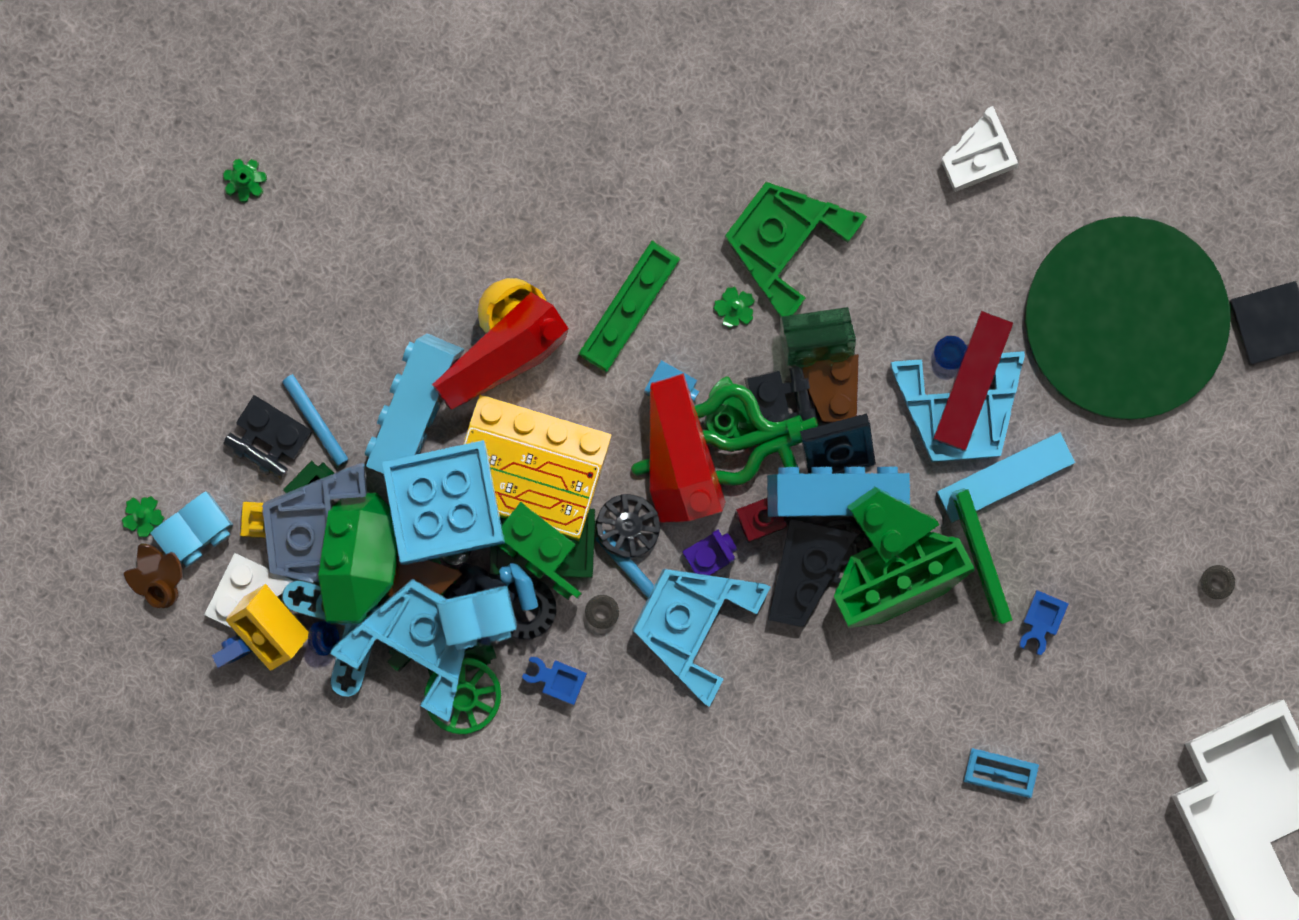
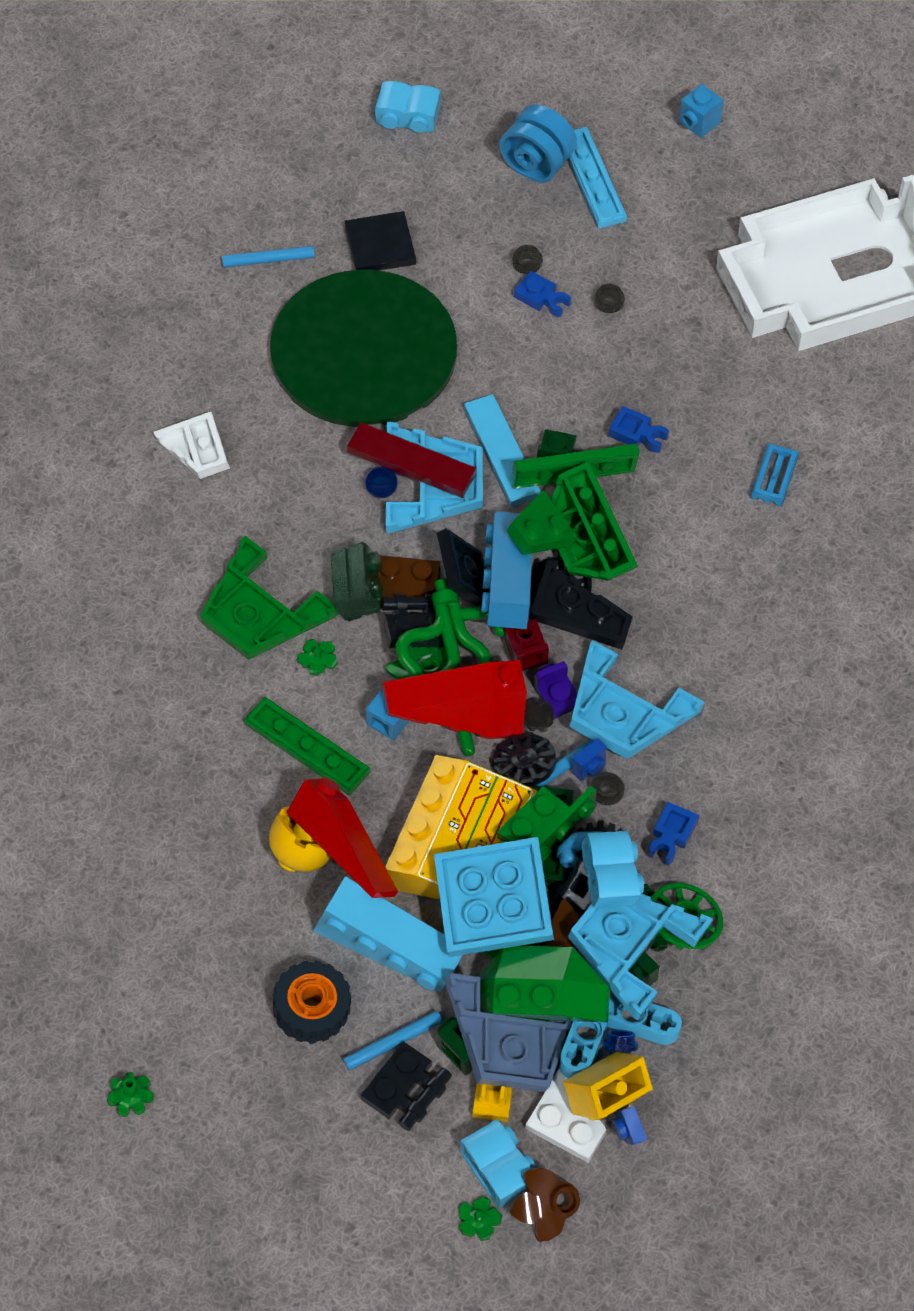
camera: 85 degrees left, 25 degrees down
(323, 335) = (317, 982): none -> black wheel
(628, 593) = (590, 760): none -> blue plate
(677, 536) = (538, 715): none -> clear smoke plate
(1009, 535) = (556, 443): none -> dark green bracket
(1221, 503) = (539, 291): none -> blue plate
(1241, 202) = (268, 256): none -> dark azure bar
(1273, 485) = (527, 252): none -> clear smoke plate

